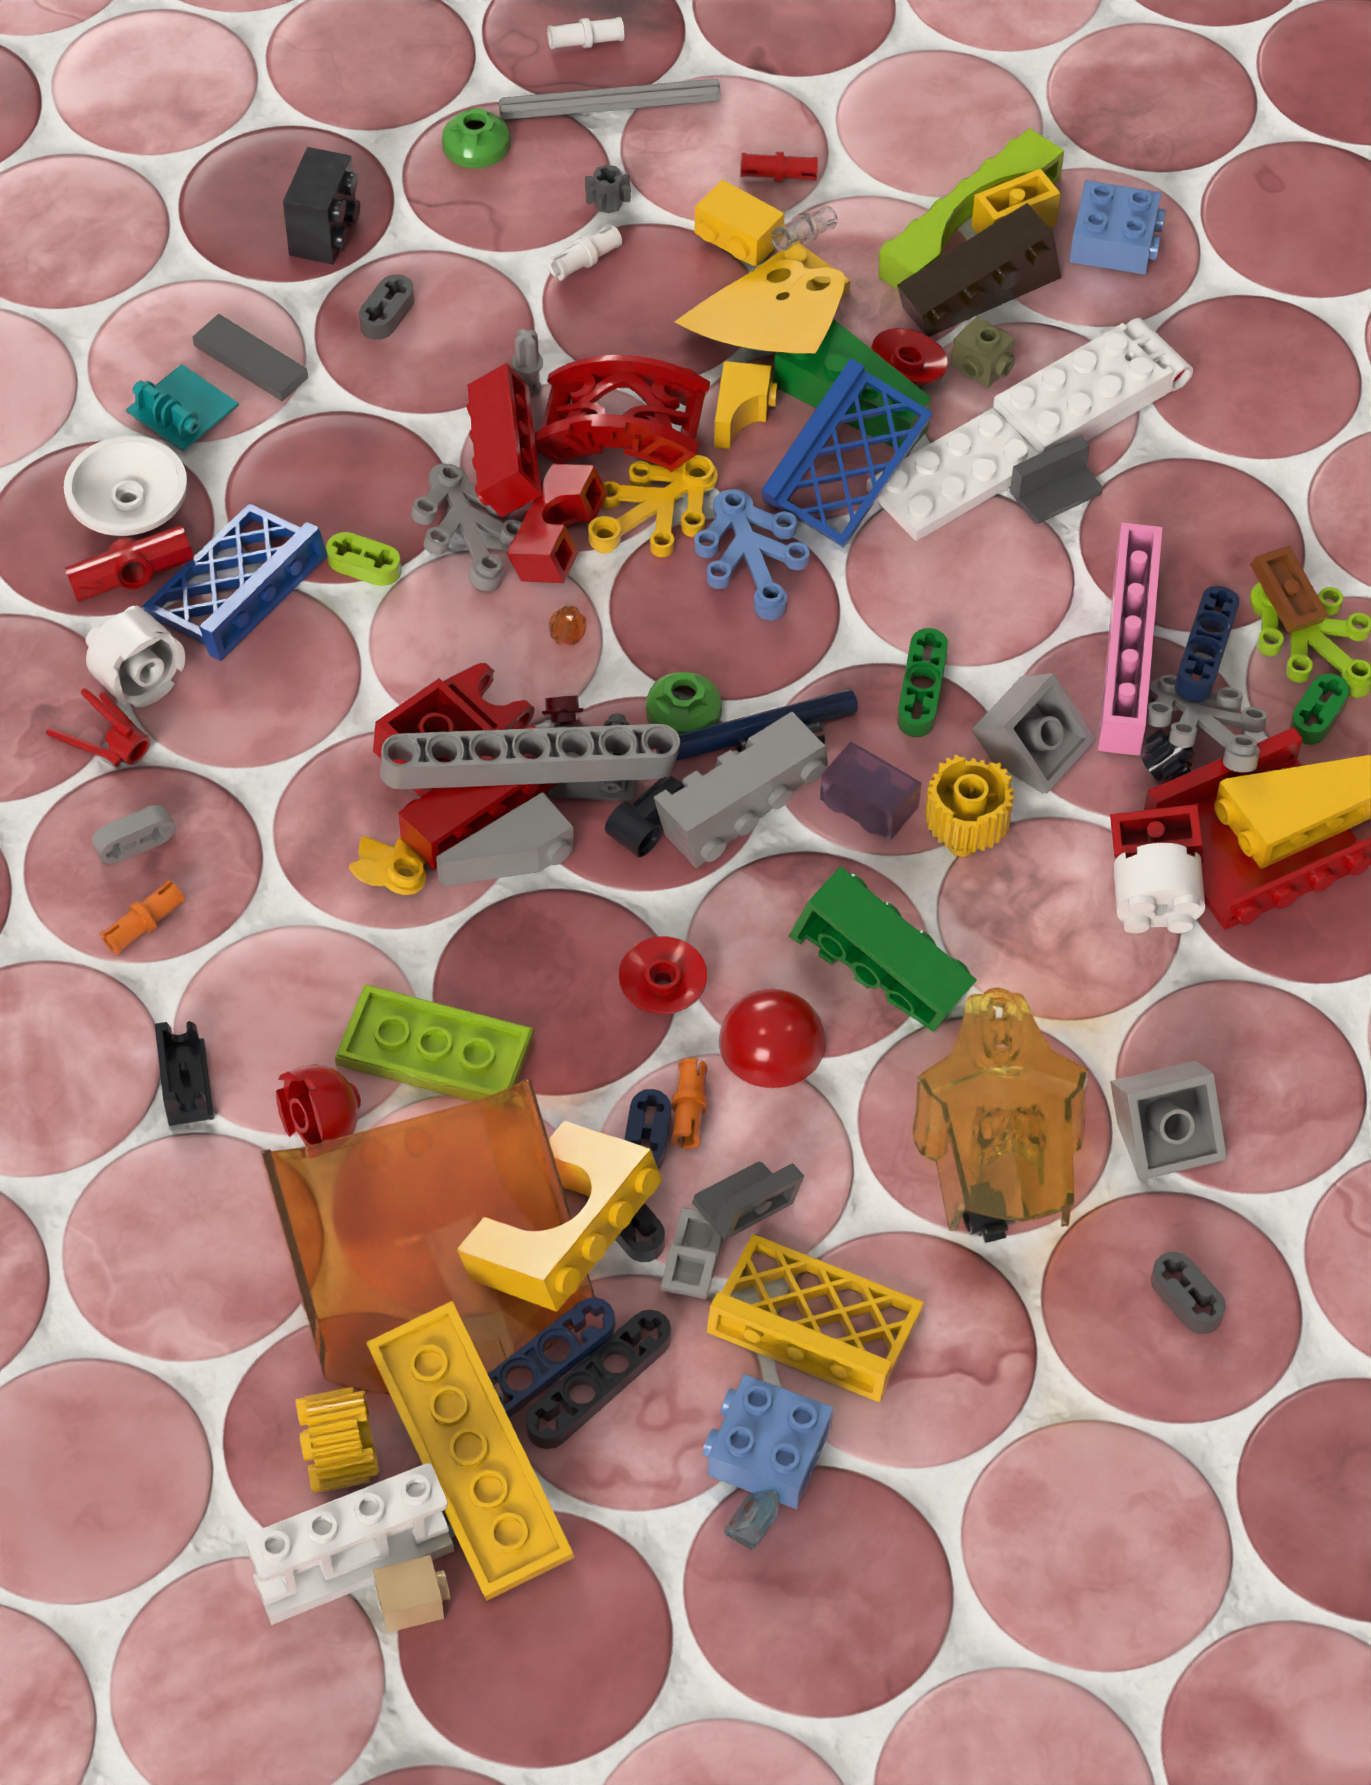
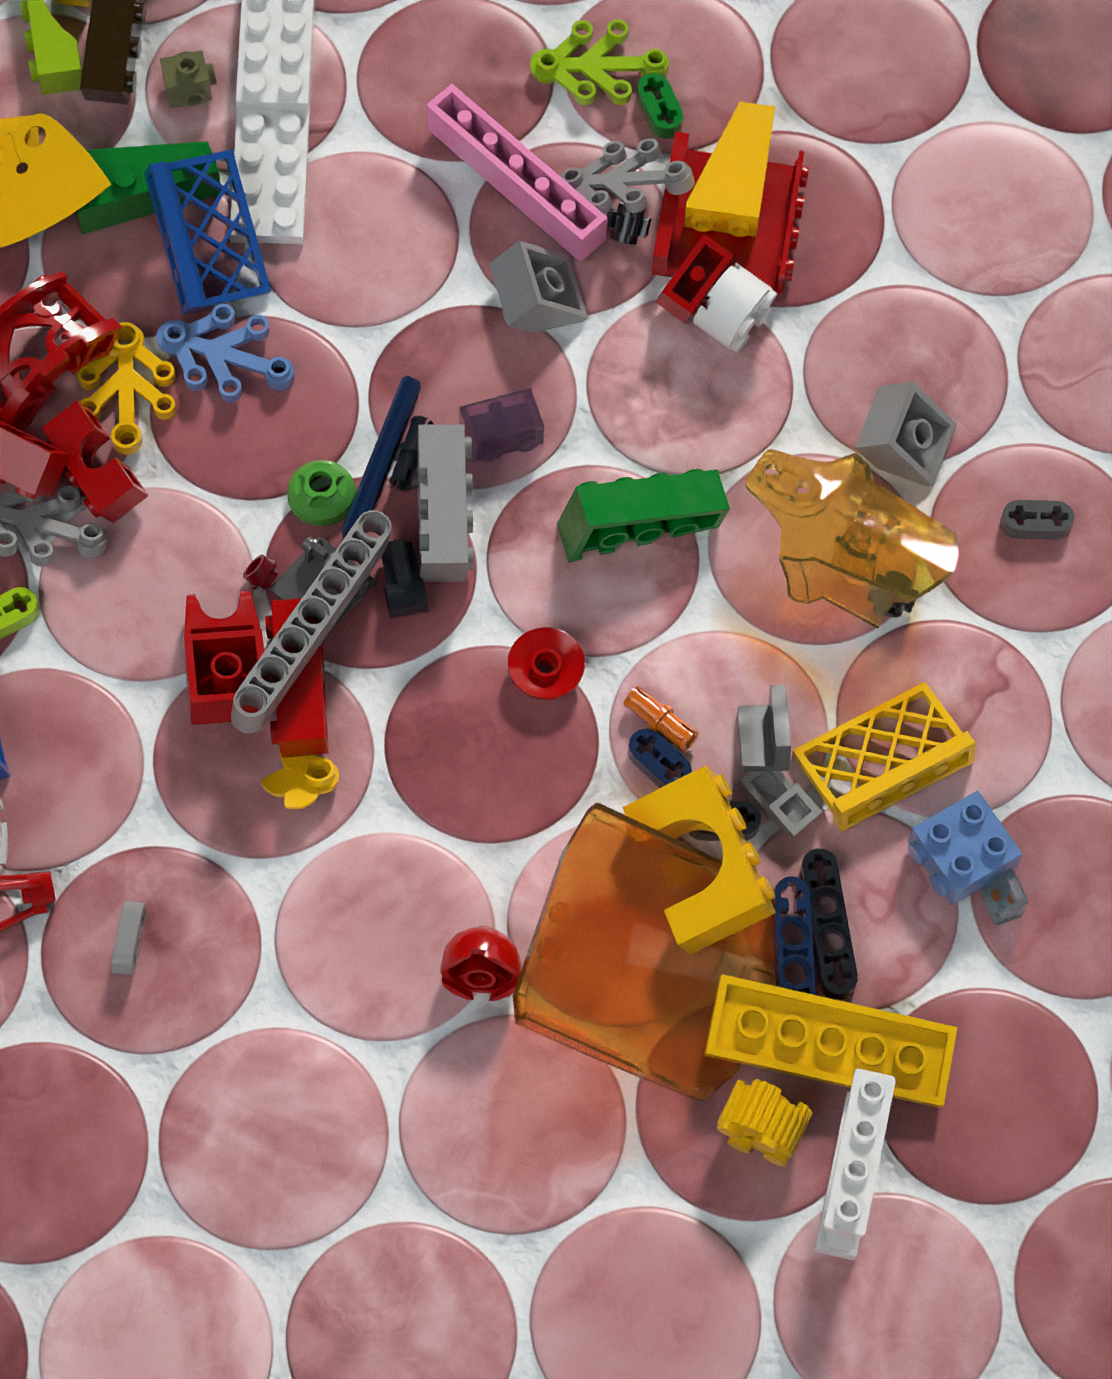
camera: 55 degrees left, 10 degrees up
(142, 917) = (208, 979): orange pin -> none
(184, 1075) = (371, 1038): black hinge -> none
(411, 1593) = (906, 1152): tan brick -> none
(433, 1045) = (478, 853): lime tile -> none
(511, 846) = (358, 681): light grey slope -> none
(567, 625) = (188, 519): clear orange plate -> none
(742, 399) = (83, 257): yellow arch -> none
(772, 1038) = (646, 631): red piece -> none
(912, 354) = (145, 125): red dish -> none
(929, 696) = (434, 342): green beam -> none
(969, 805) = (568, 372): yellow brick -> none
(1054, 480) = (336, 120): dark grey panel -> none
(1206, 643) = (563, 127): dark blue beam -> none
(1289, 589) = (562, 48): dark orange plate -> none

